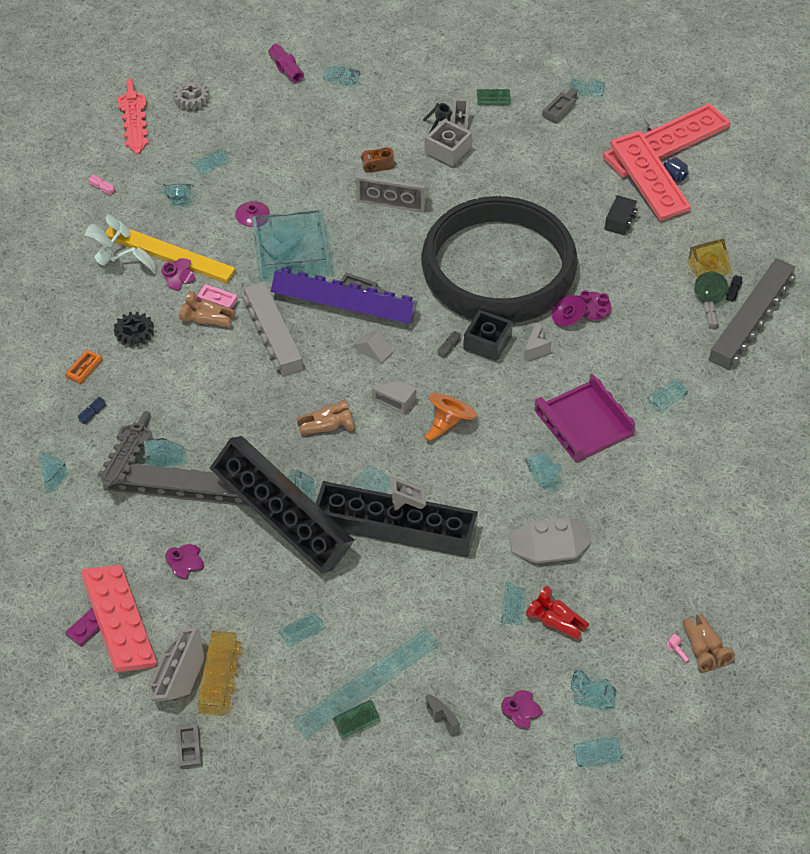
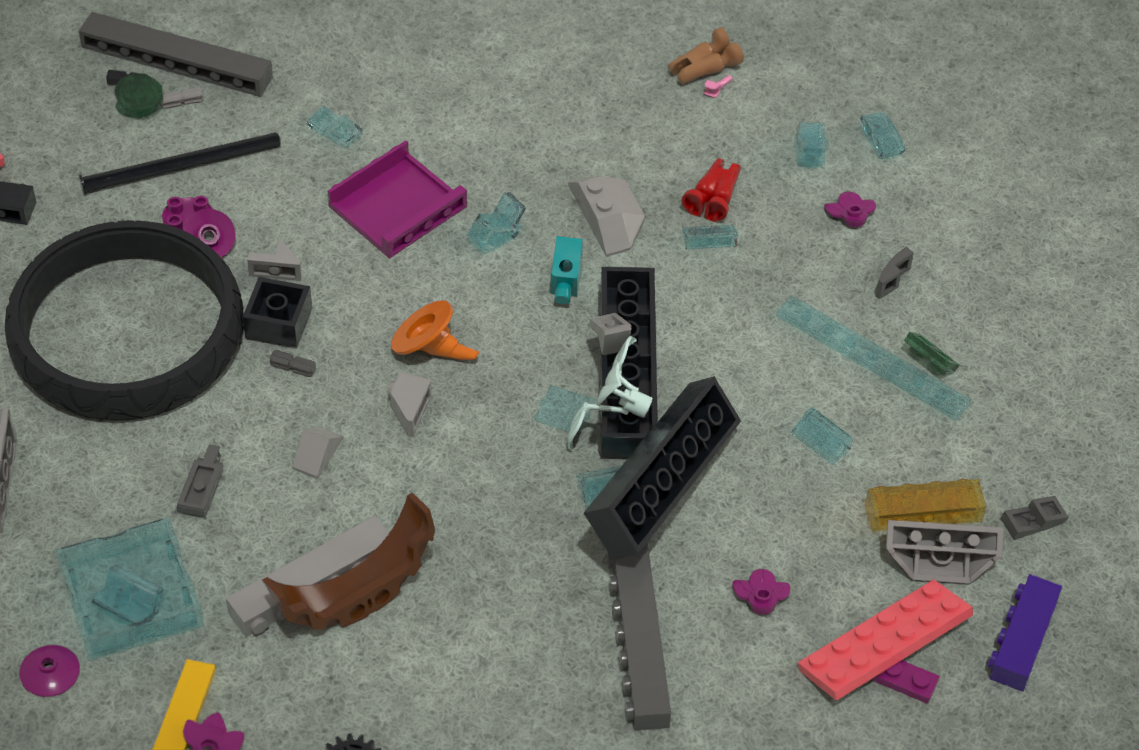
camera: 105 degrees left, 0 degrees up
(92, 704) = (1025, 633): none -> dark purple brick
(131, 438) = (573, 699): dark grey bar -> none
(164, 452) = (592, 661): clear light blue slope -> none
(206, 312) = (293, 669): medium nougat piece -> none
(217, 296) = (258, 668): bright pink plate -> none
(248, 335) = (369, 583): none -> reddish brown windscreen
(326, 419) = (472, 477): medium nougat piece -> none
(341, 493) = (631, 399): none -> light aqua plant
(344, 296) = (232, 496): dark purple brick -> none
(489, 499) = (565, 274): none -> teal torso
(646, 311) = (179, 162): none -> black axle
(709, 257) = (84, 102): clear yellow slope -> none

